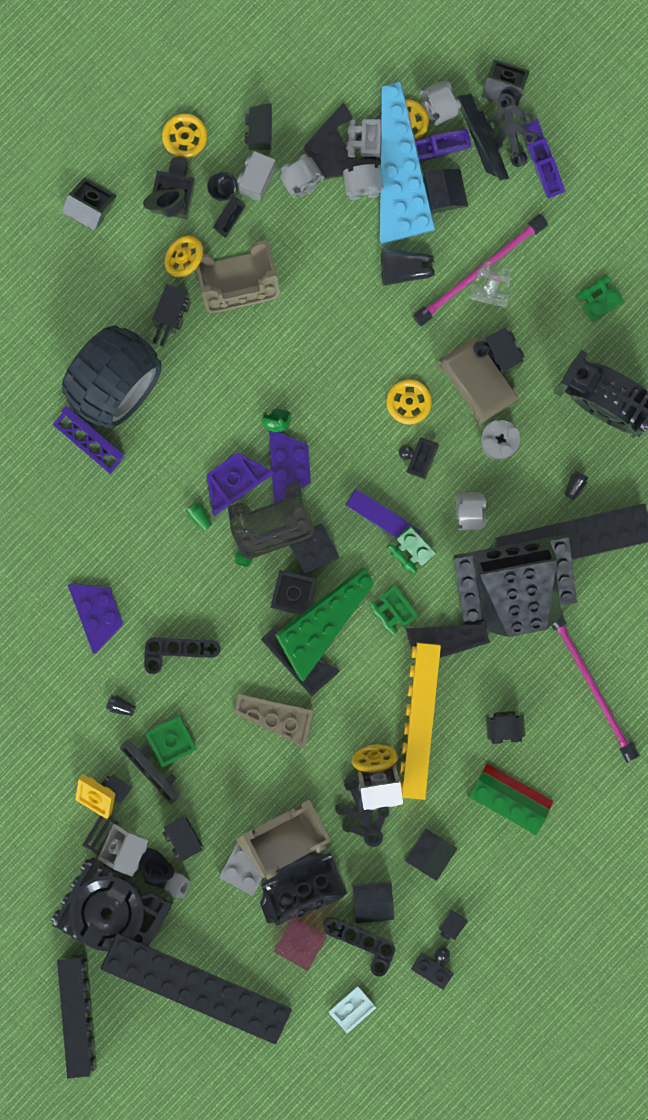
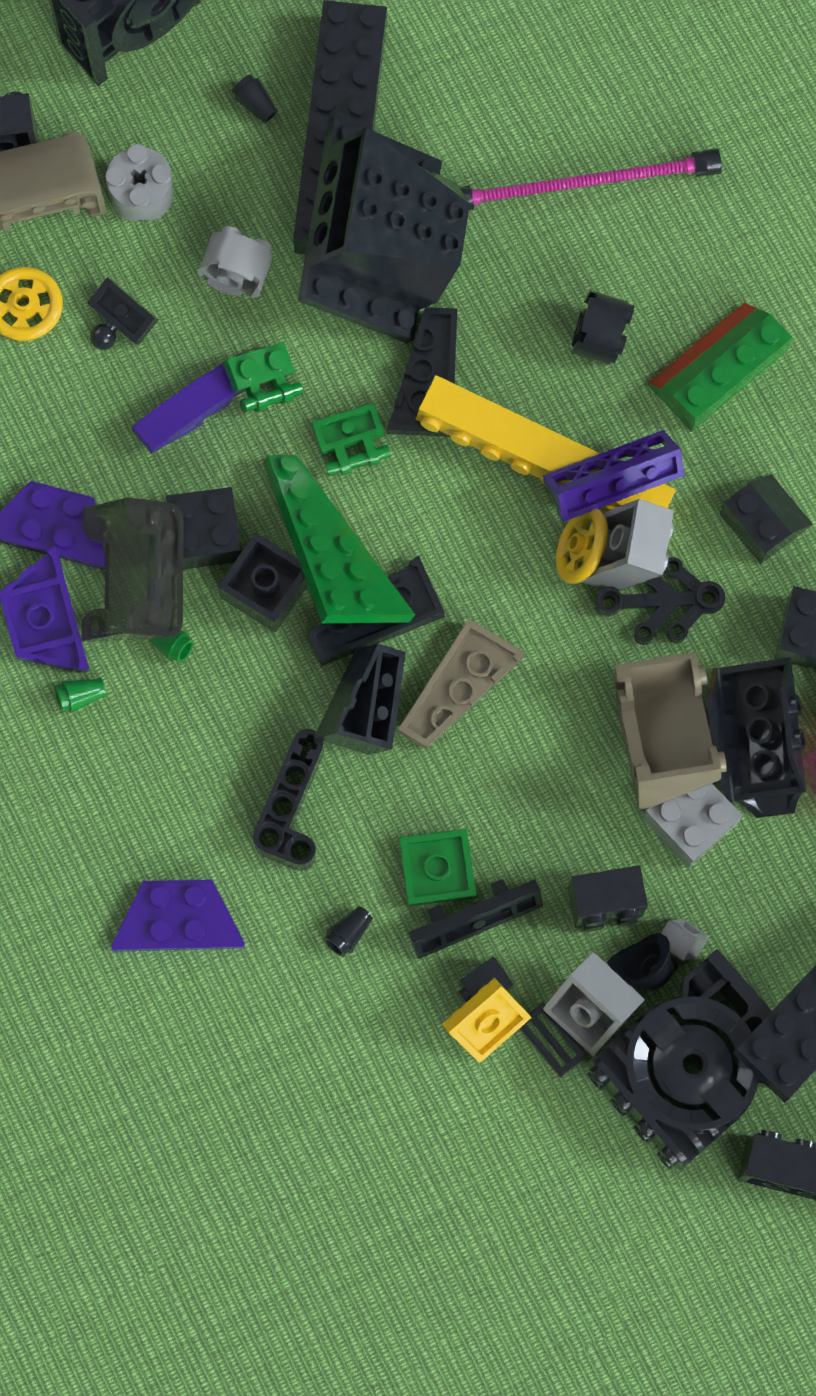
camera: 70 degrees left, 10 degrees down
(246, 671) = (365, 701): none -> black wedge
(416, 766) = (617, 478): none -> dark purple fence

